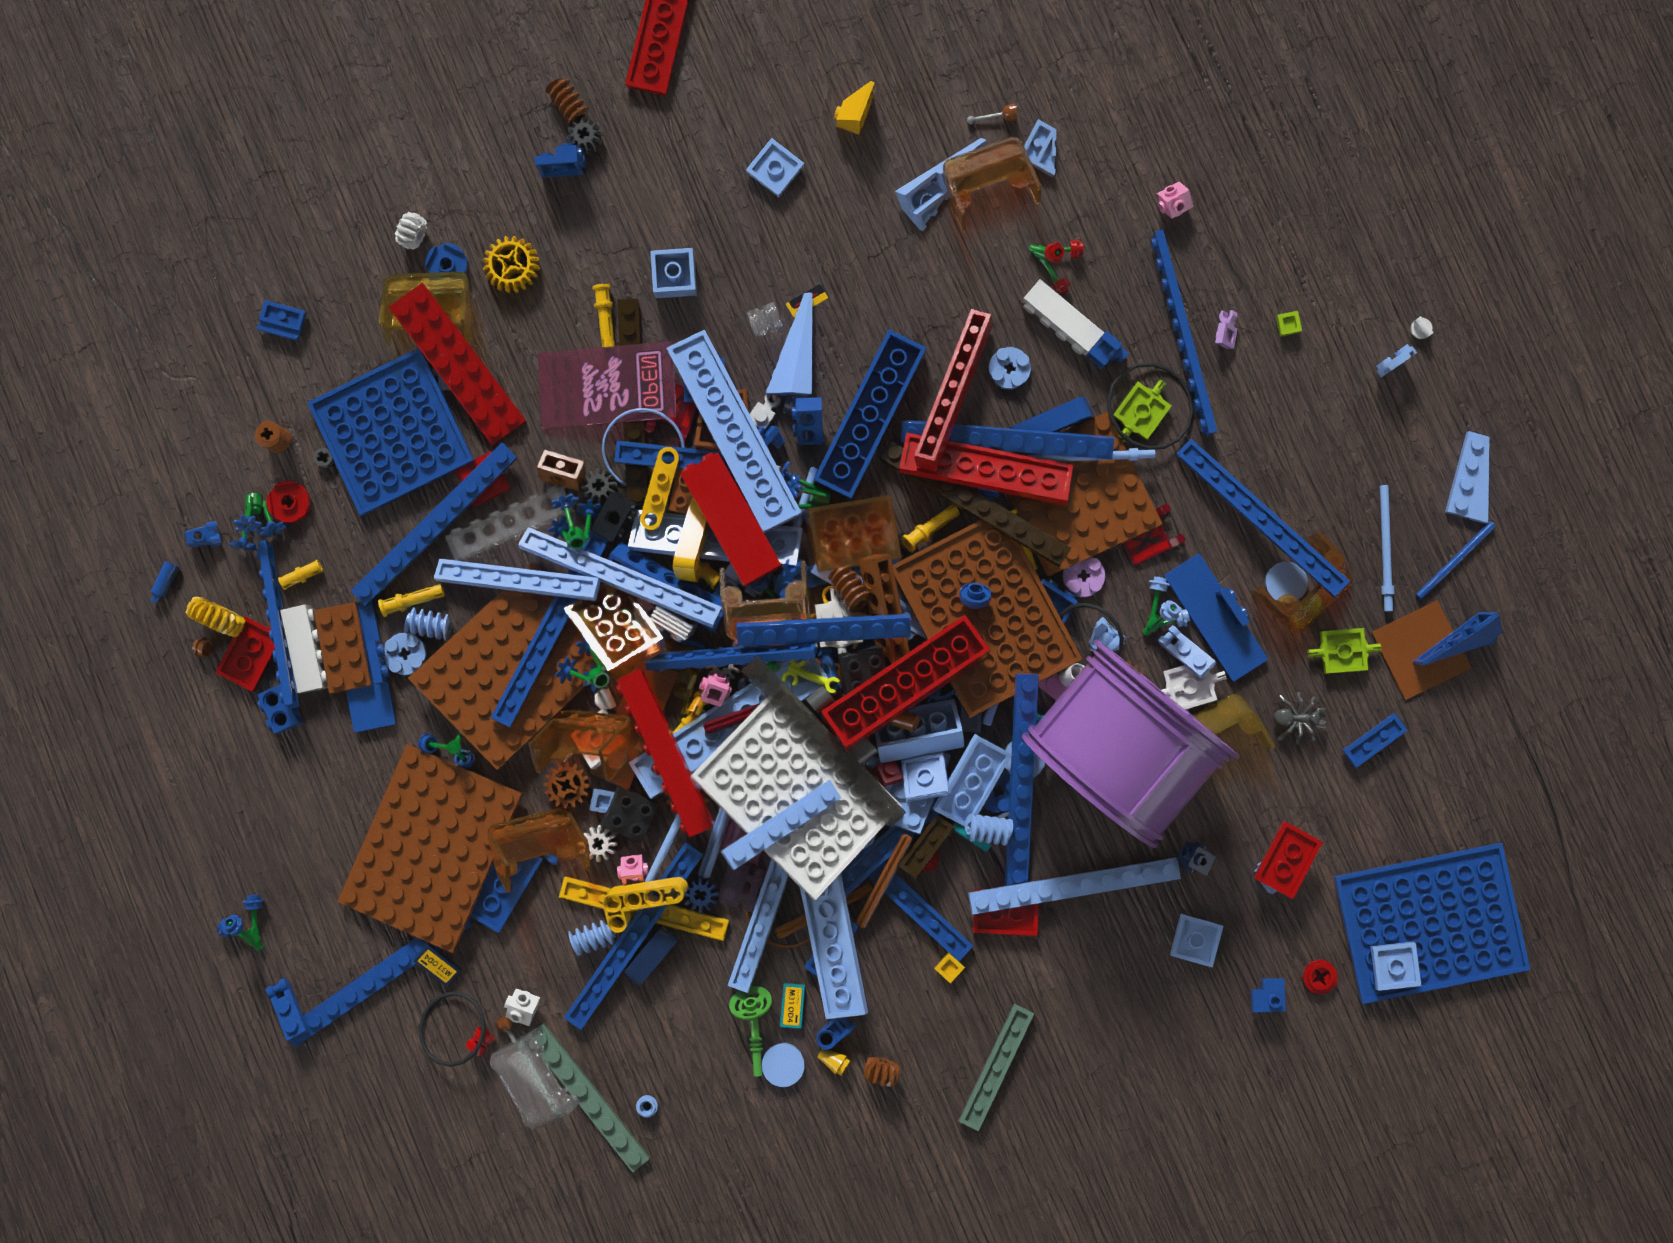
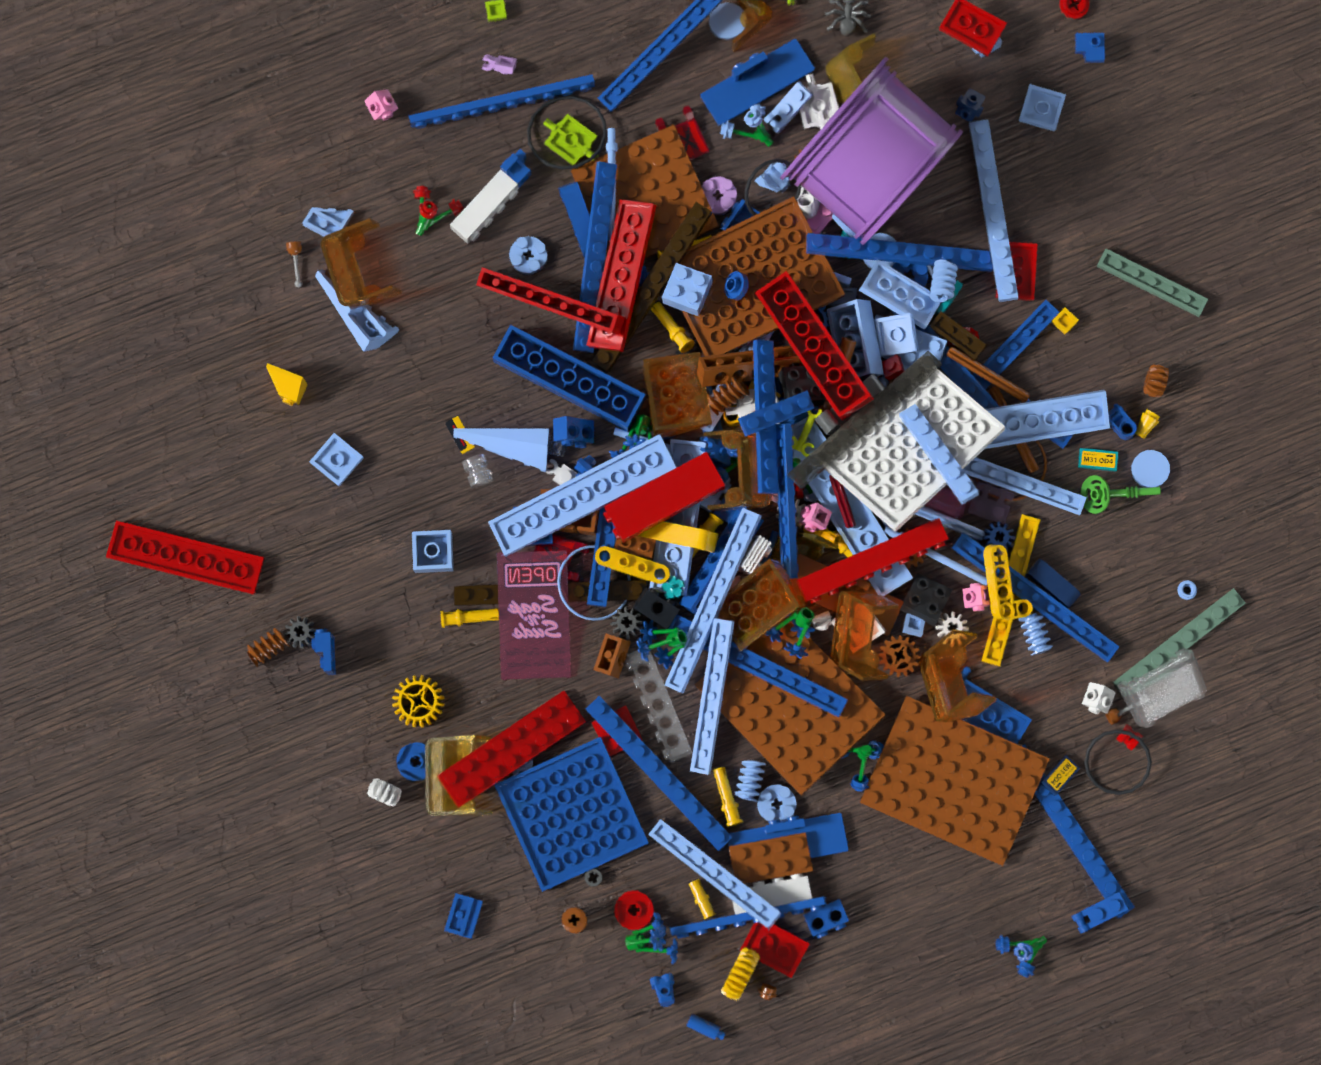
camera: 85 degrees left, 5 degrees down
(321, 586) = (715, 874): none -> light blue plate
(636, 533) = (673, 587): none -> teal plant
(825, 640) = (776, 413): none -> blue plate
(970, 540) = (687, 289): none -> light blue brick

